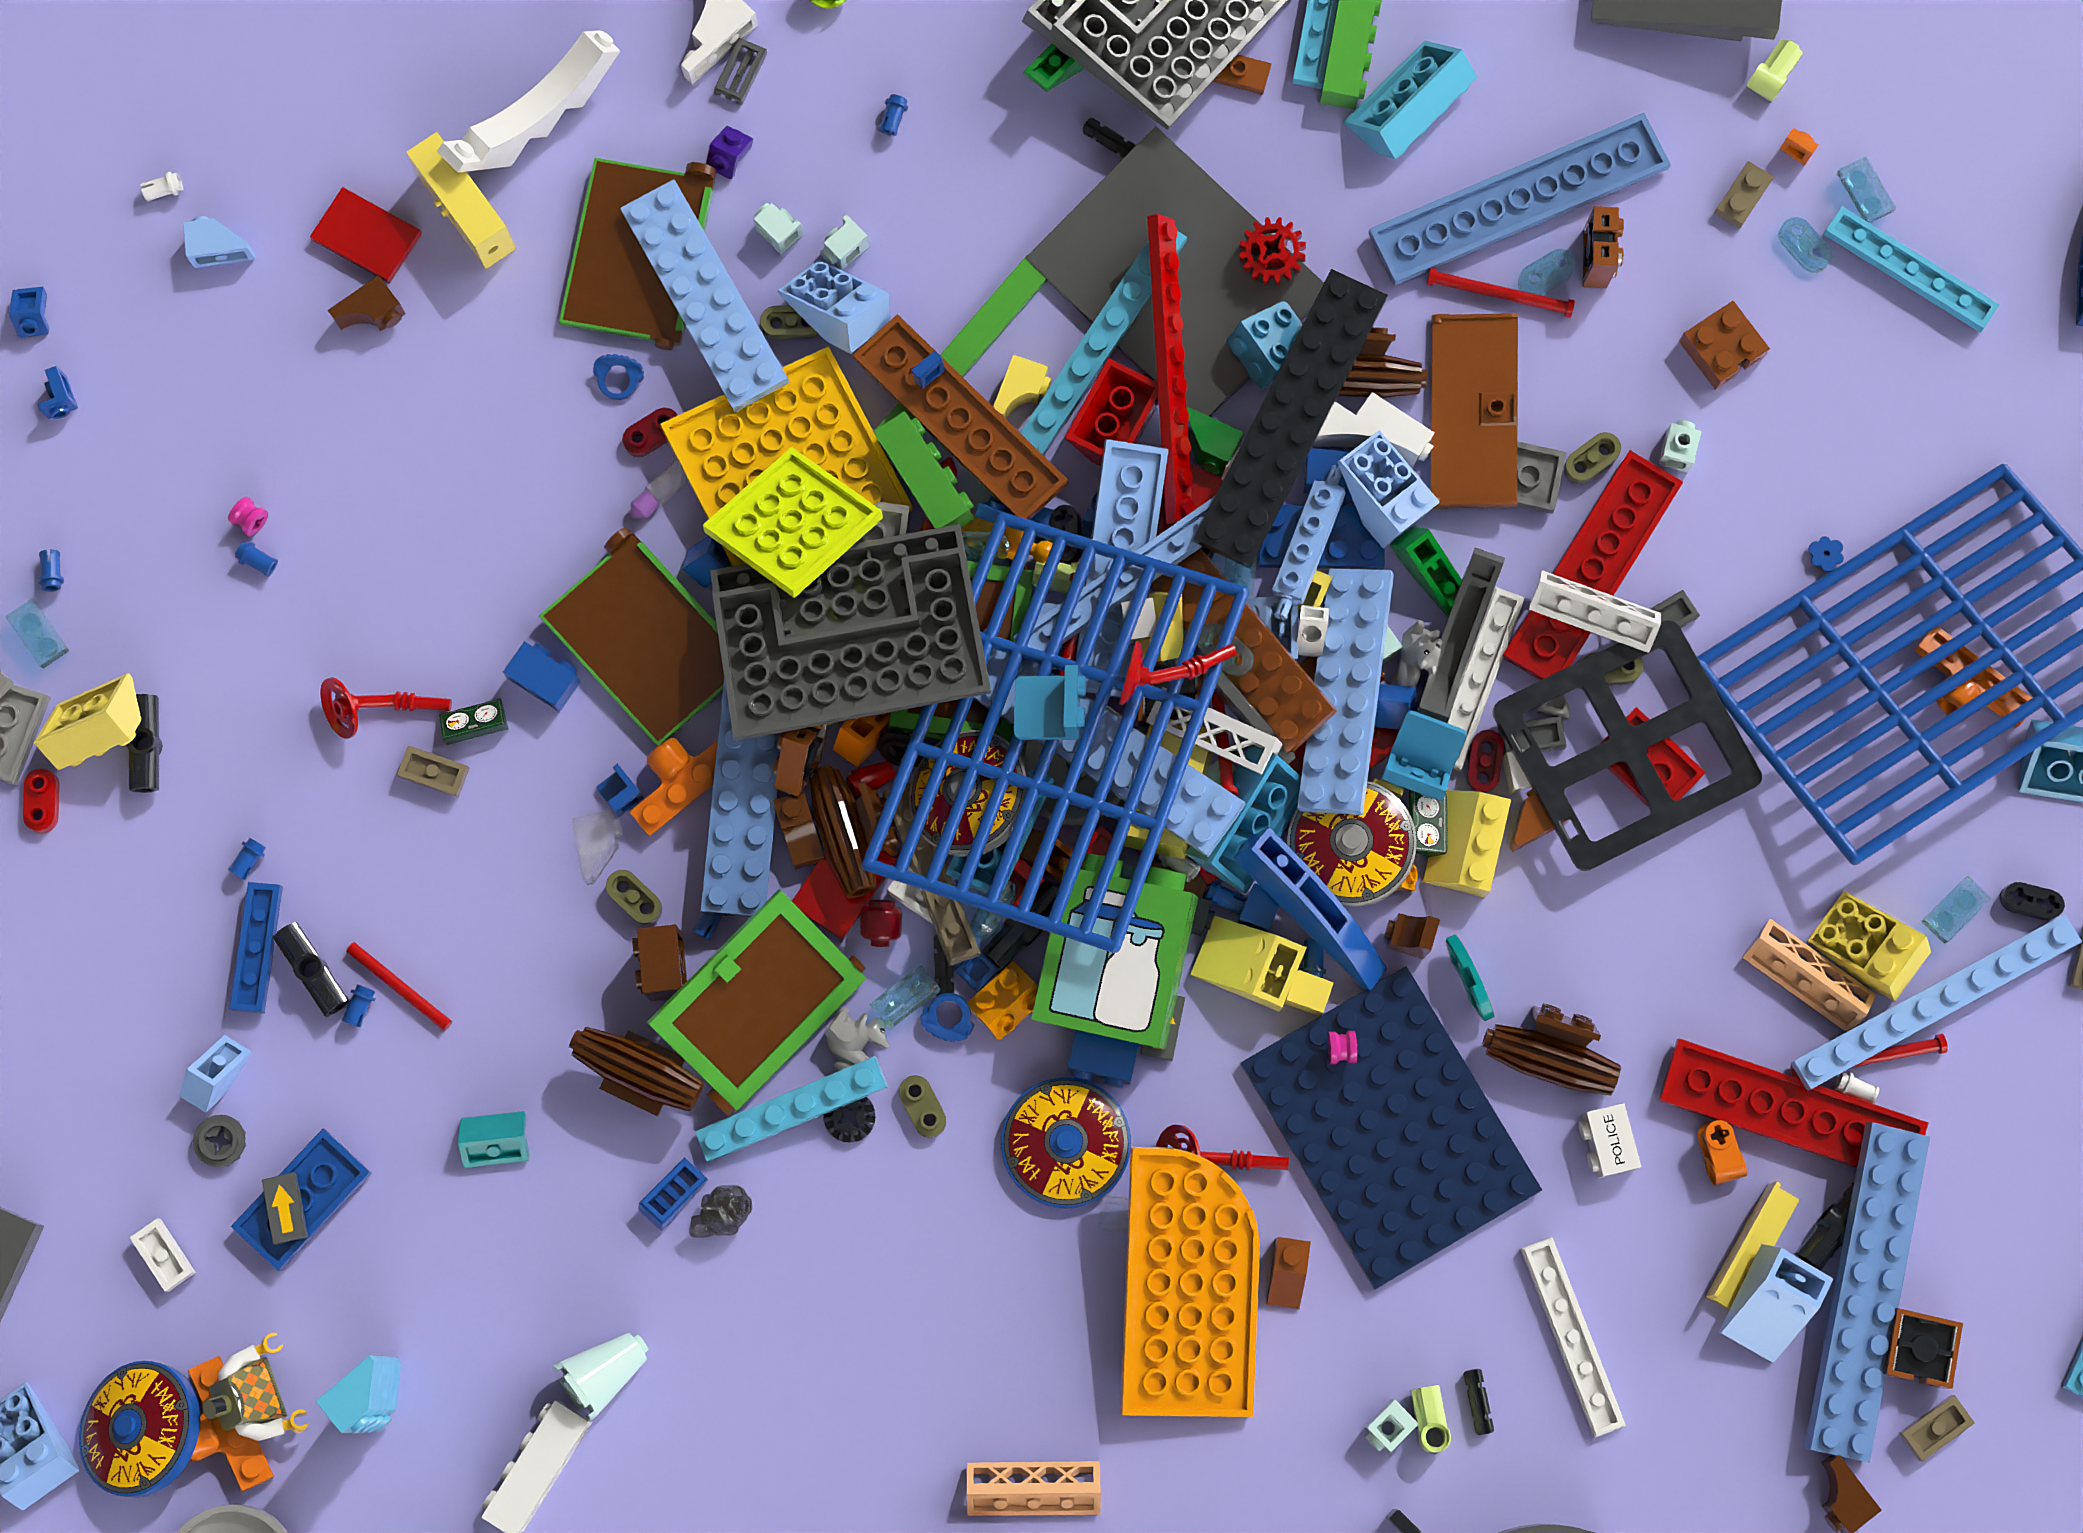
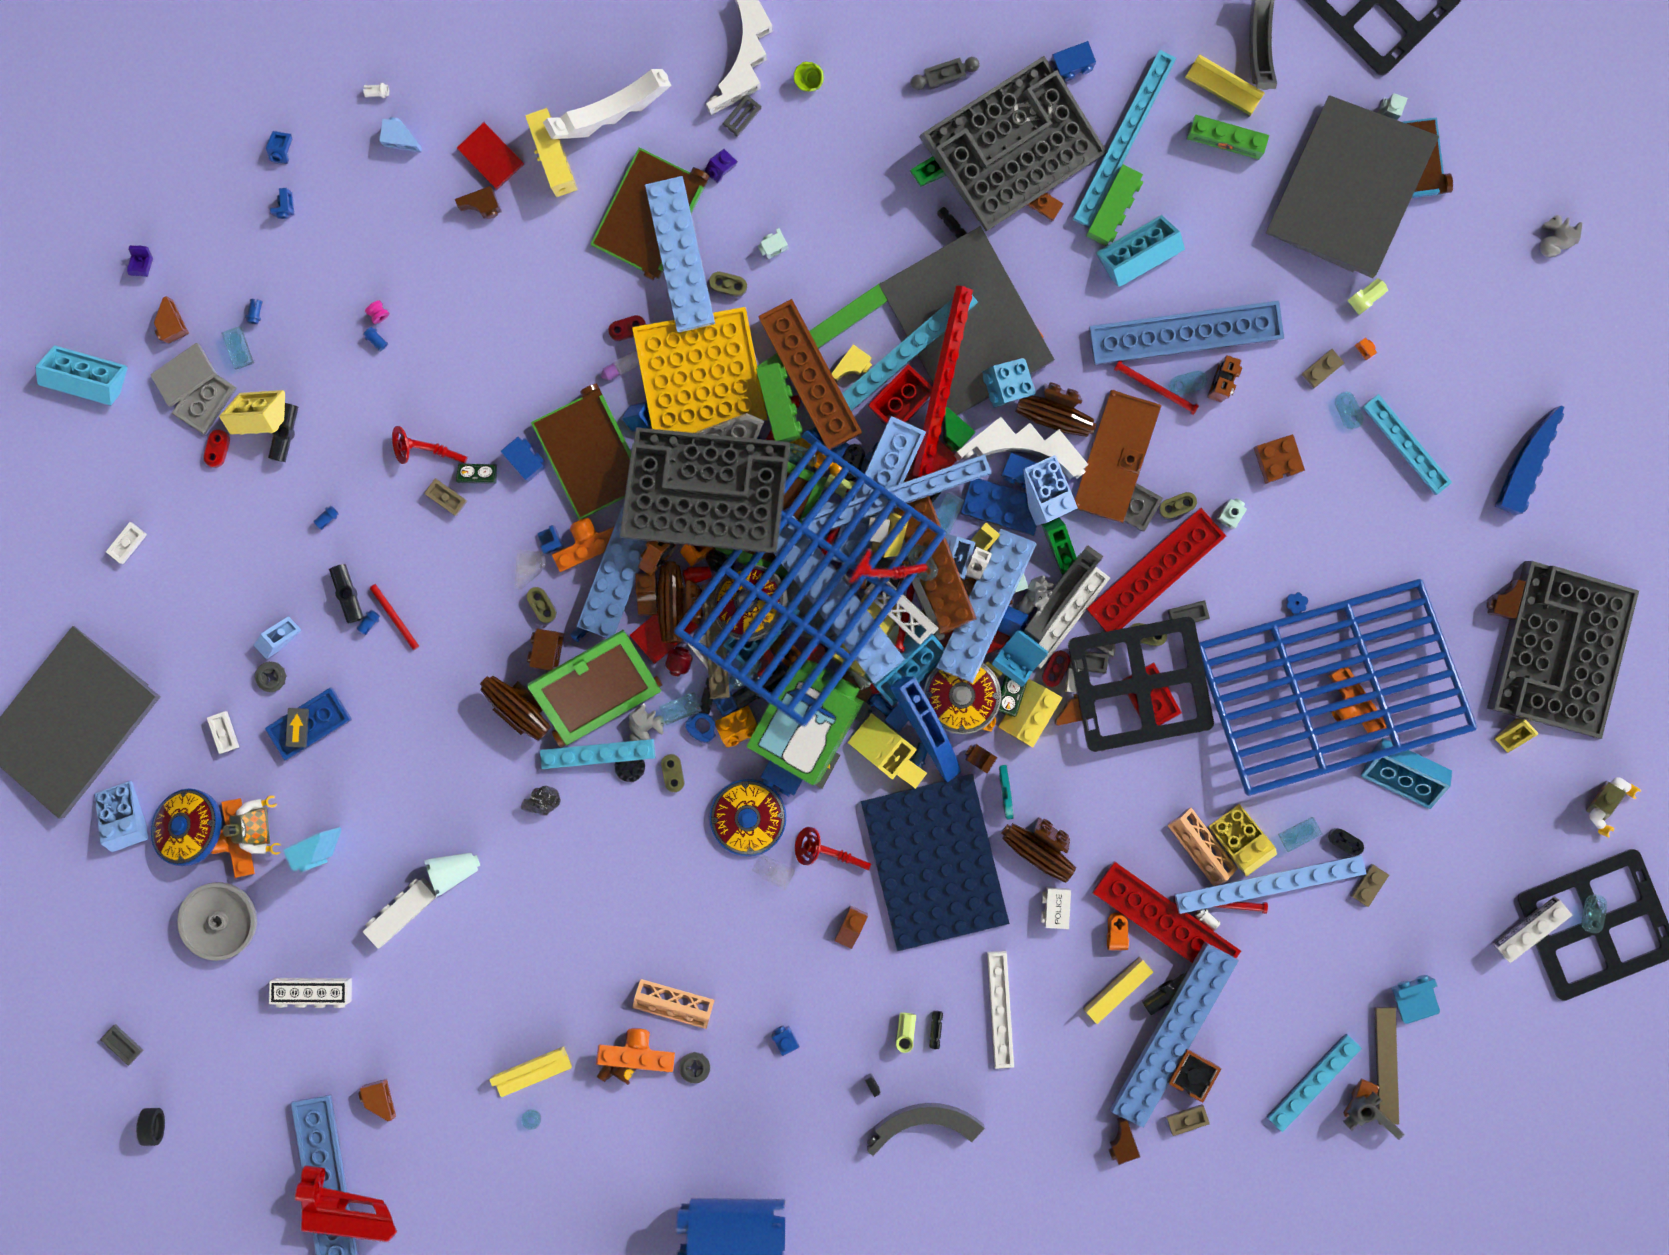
camera: 20 degrees right, 10 degrees up
(256, 947) = (318, 571): blue plate -> none
(493, 1139) = (425, 721): teal panel -> none
(605, 363) = (626, 286): blue piece -> none
(652, 1214) = (504, 791): blue slope -> none
(777, 227) = (736, 222): light aqua brick -> none
(793, 522) = (692, 412): neon yellow plate -> none
(837, 305) = (757, 282): light blue slope -> none
(893, 113) = (825, 171): blue pin -> none
(928, 370) = (799, 341): blue tile -> none
(1049, 706) = (808, 570): dark azure bracket -> none
(1188, 1289) = (791, 922): light orange plate -> none
(1236, 1493) = (785, 1040): none -> blue bracket
(1283, 259) = (1020, 319): red gear -> none
(1290, 419) = (1004, 434): black plate -> none
(1308, 542) = (992, 511): light blue plate -> none
(1342, 1047) = (920, 812): dark pink wheel -> none
(1402, 1424) = (889, 1029): light aqua brick -> none
(1595, 611) = (1148, 600): white fence -> none
(1774, 1302) = (1119, 1025): light blue slope -> none
(1866, 190) = (1397, 387): clear light blue plate -> none

